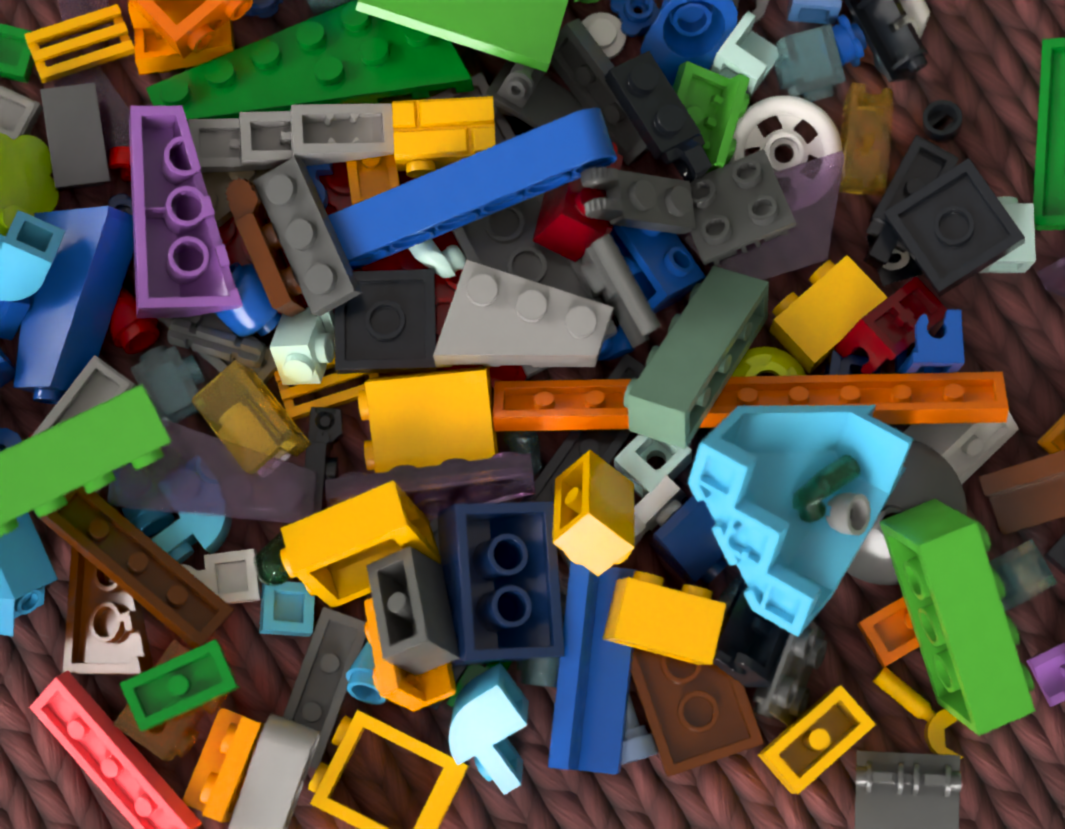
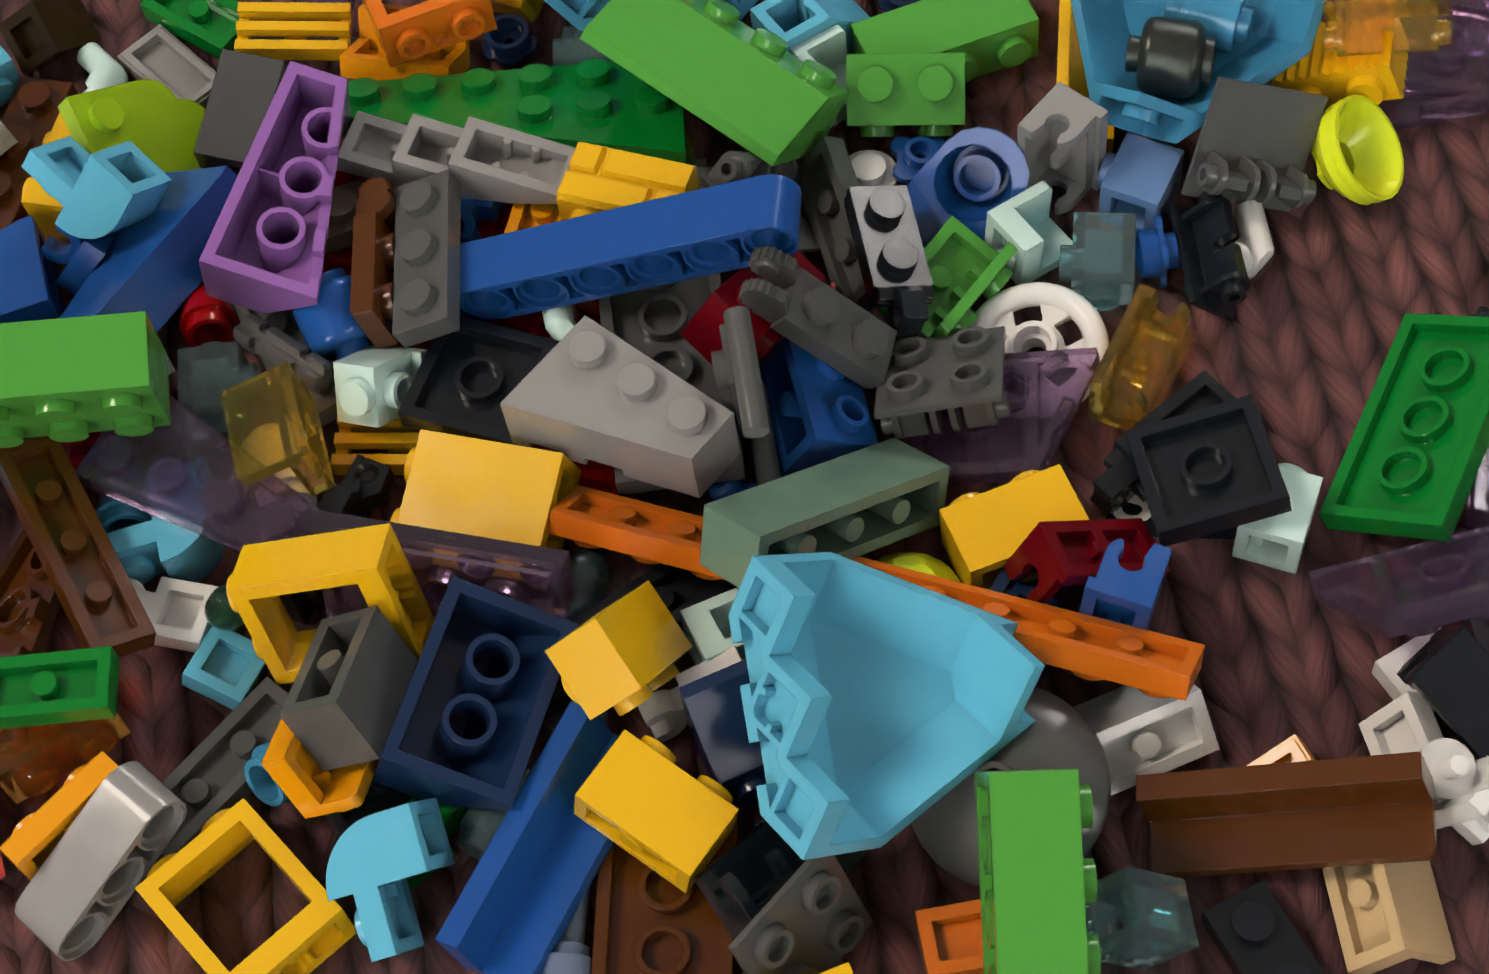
camera: 30 degrees right, 20 degrees down
(823, 484) = (914, 694): clear green arm -> none
(849, 513) = (940, 728): light grey hinge -> none
(936, 115) = (1244, 368): black hinge -> none

